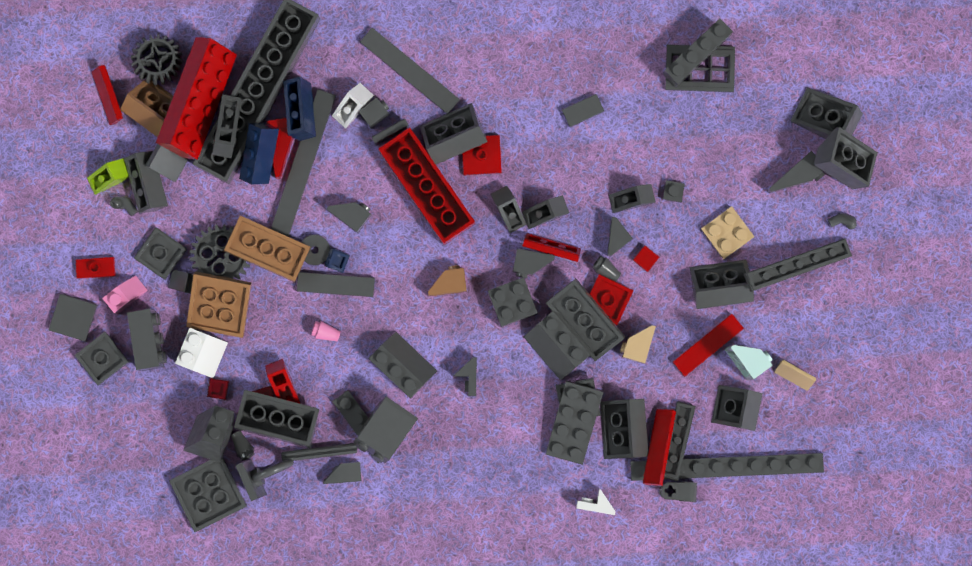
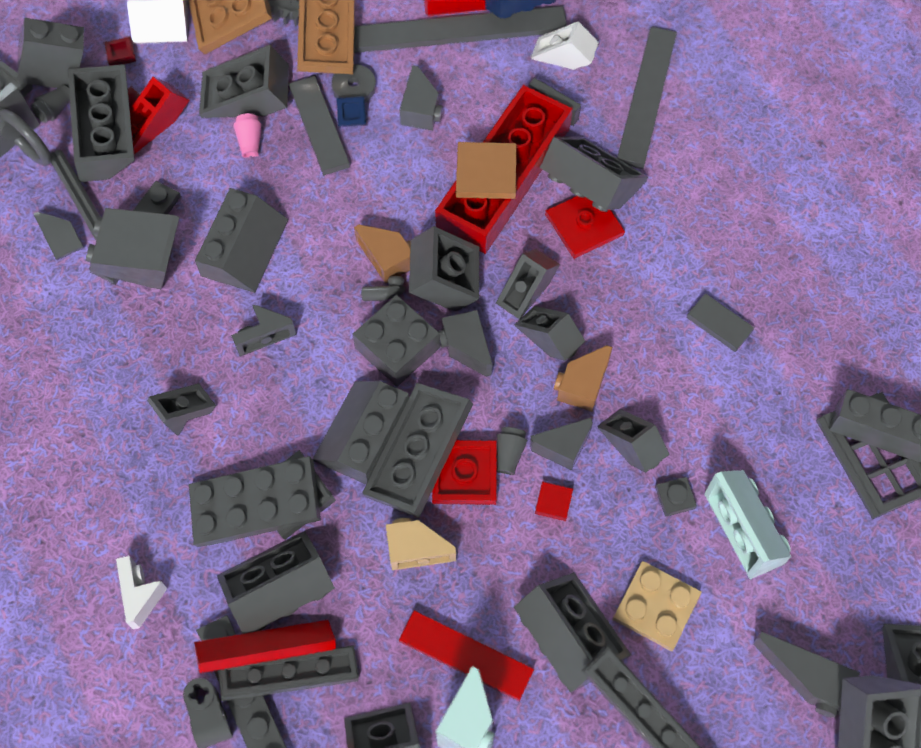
camera: 65 degrees right, 20 degrees down
(287, 320) = (245, 85): none -> dark grey slope
(374, 112) = (569, 74): dark grey brick -> none
(432, 201) = (486, 170): none -> medium nougat tile
(475, 296) = (383, 293): none -> dark grey arm
(483, 255) = (444, 269): none -> dark grey brick
(498, 440) = (181, 405): none -> dark grey slope
(551, 247) = (503, 361): red tile -> none
(584, 207) = (583, 379): none -> medium nougat slope
(708, 162) = (747, 522): none -> light aqua slope

